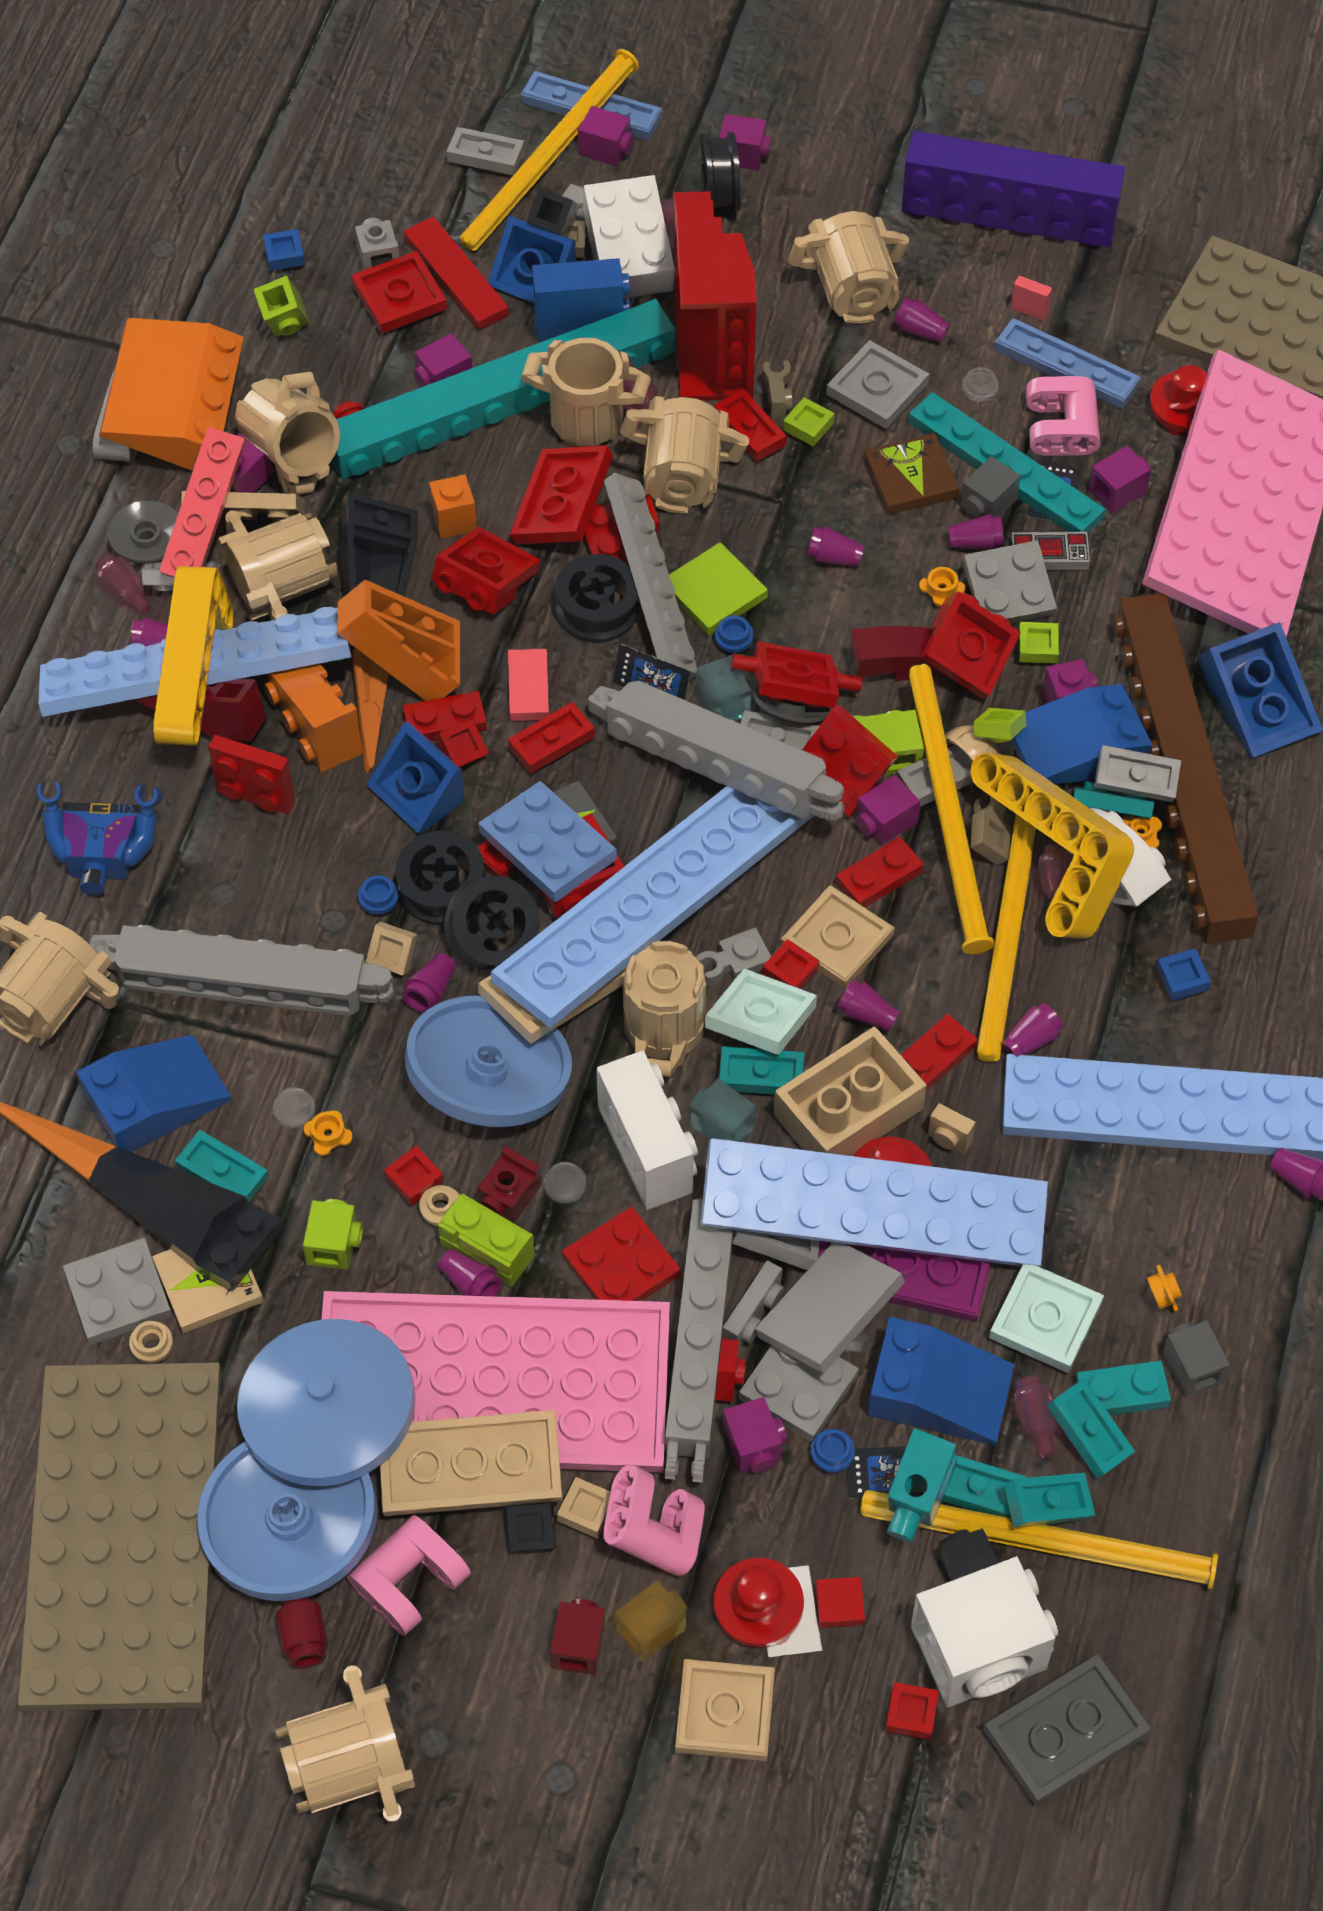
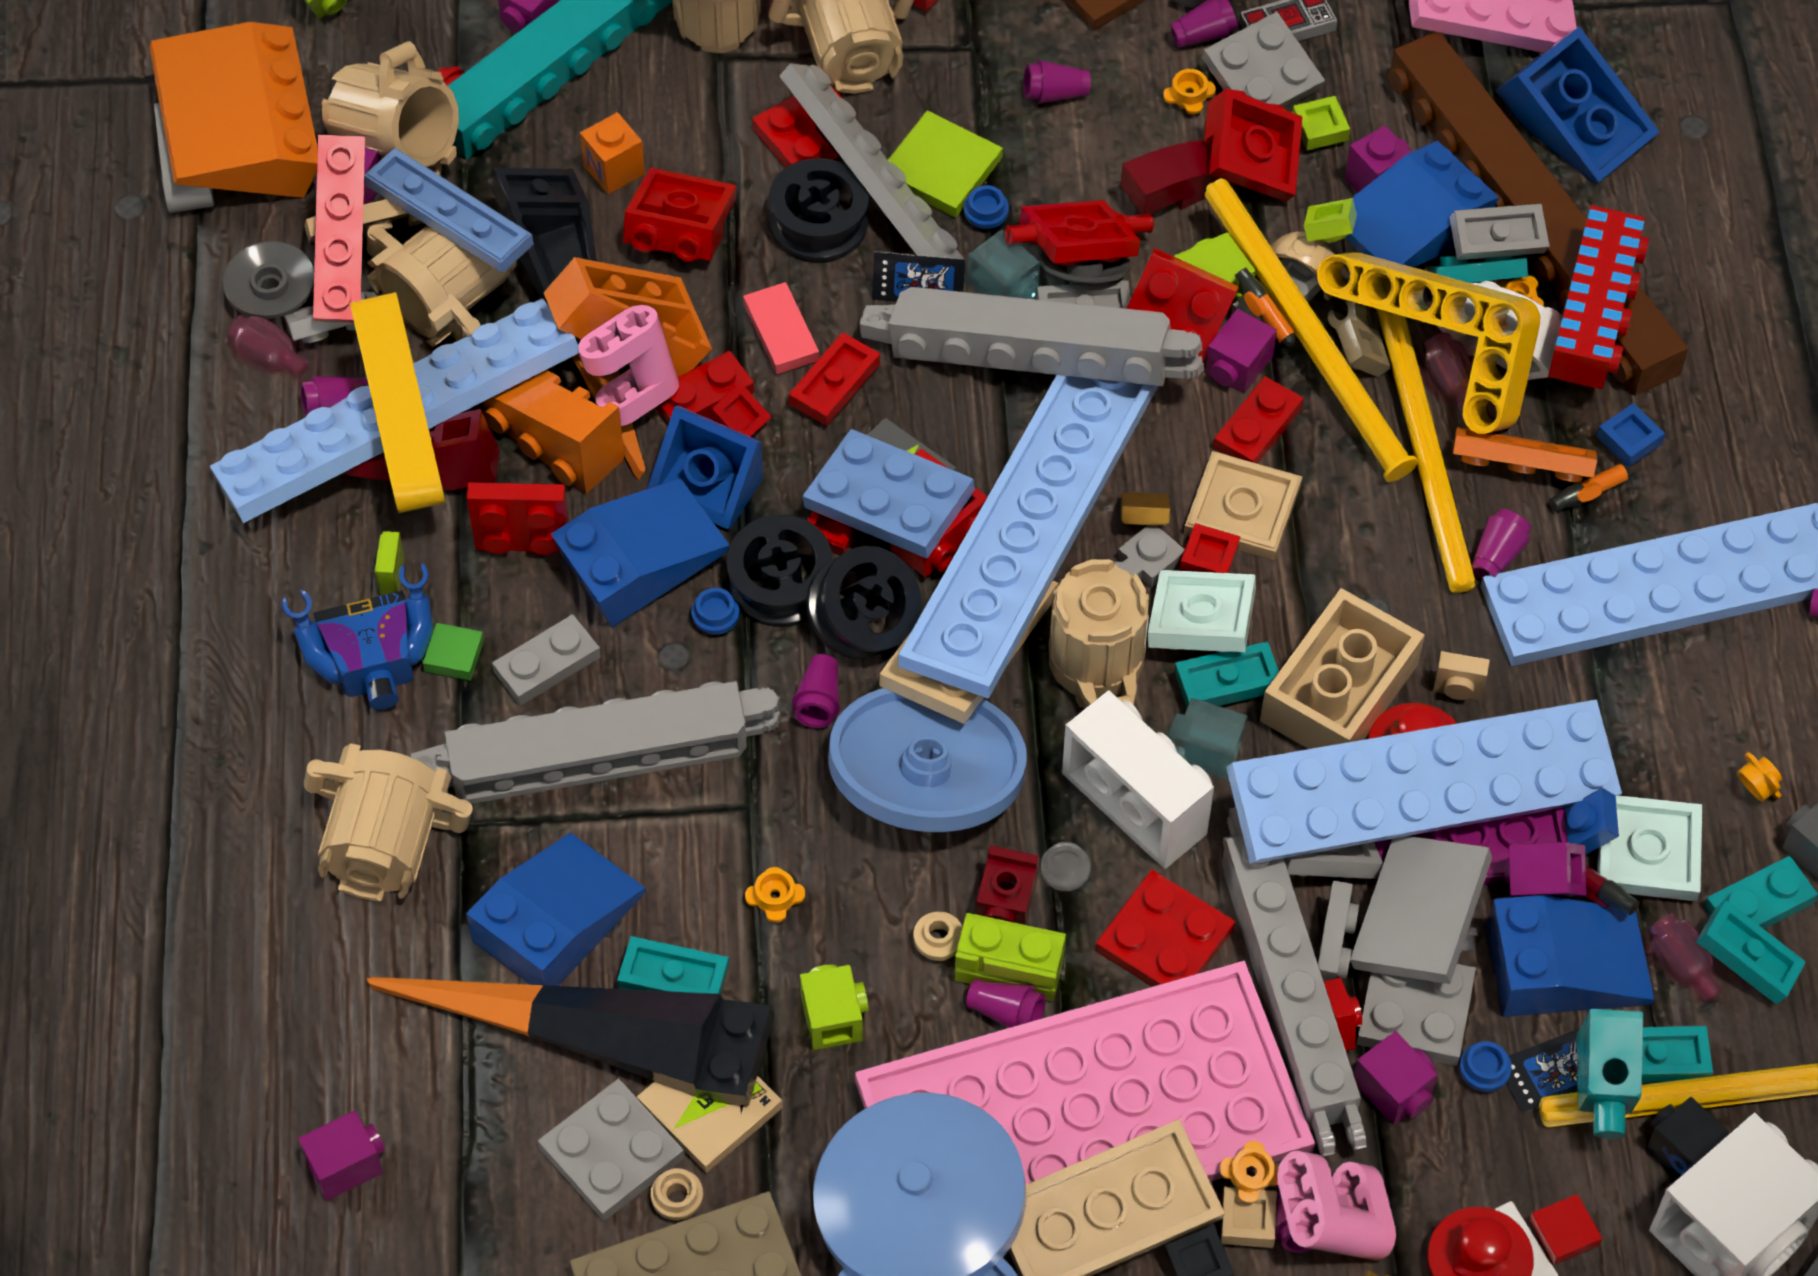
camera: 20 degrees left, 0 degrees up
(143, 773) = (388, 562): none -> lime tile
(163, 865) = (453, 651): none -> bright green tile
(232, 893) = (546, 660): none -> light grey plate
(291, 515) = (449, 210): none -> medium blue tile
(294, 1107) = (724, 878): clear plate -> none
(336, 826) = (639, 547): none -> blue slope
(391, 948) = (759, 664): tan plate -> none
(397, 660) = (645, 351): none -> bright pink connector
(413, 1175) = (894, 911): red plate -> none
(561, 495) = (730, 106): red plate -> none
(589, 1463) = (1252, 1156): none -> light orange plate
(753, 915) = (1145, 508): none -> pearl gold tile
(867, 1006) = (1311, 571): magenta cone -> none
(917, 777) = (1262, 305): none -> orange piece
(939, 1050) = (1410, 590): red plate -> none
(945, 1307) = (1546, 869): none -> magenta brick
(985, 1336) = (1608, 892): none -> pearl dark grey piece
(1004, 1280) = (1592, 820): none -> blue plate
(1049, 1500) = (1743, 1043): teal plate -> none
(1086, 964) = (1525, 454): none -> orange plate
(1131, 1008) = (1590, 488): none -> orange piece
(1194, 851) = (1597, 298): none -> red brick

